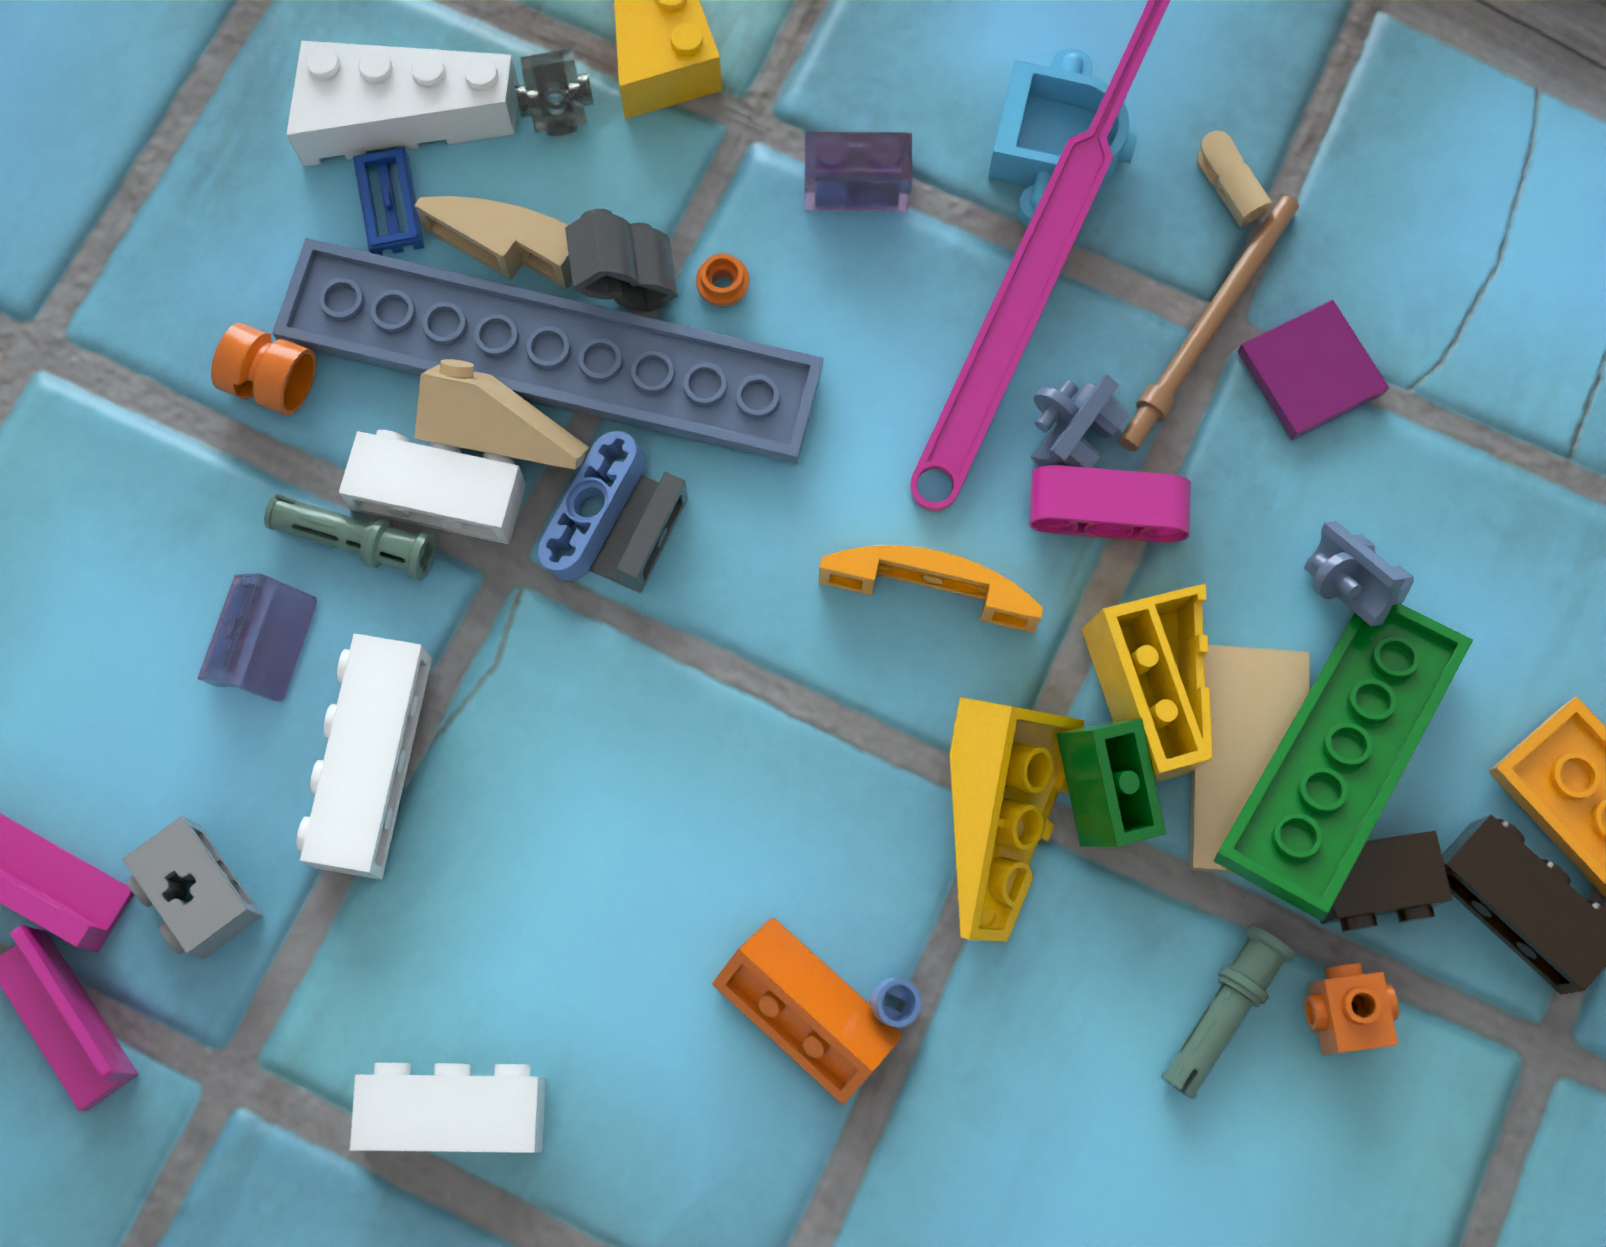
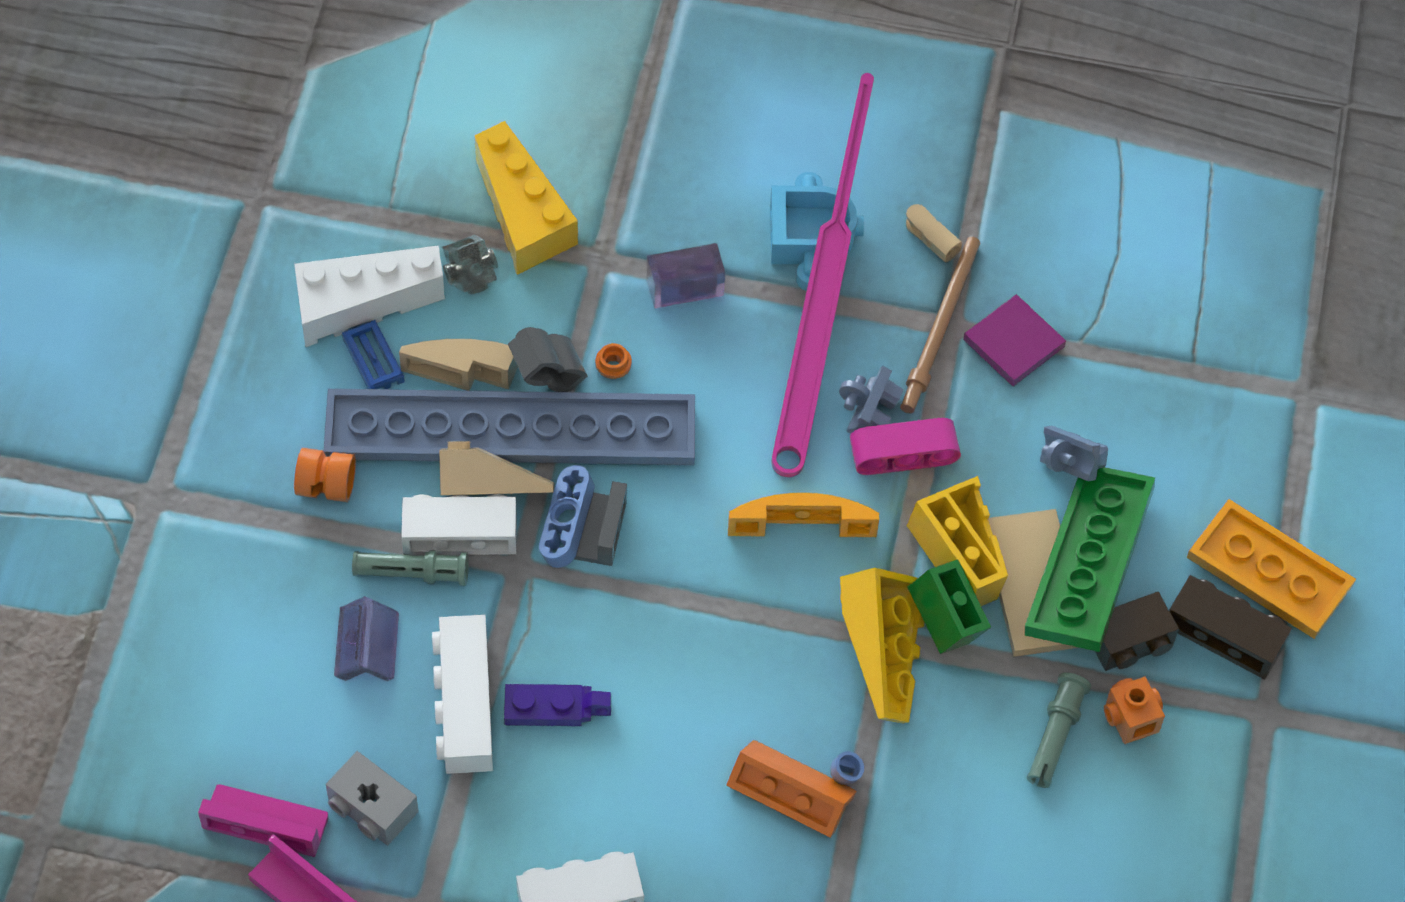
camera: 15 degrees left, 15 degrees down
(494, 794) = (553, 704): none -> dark purple hinge

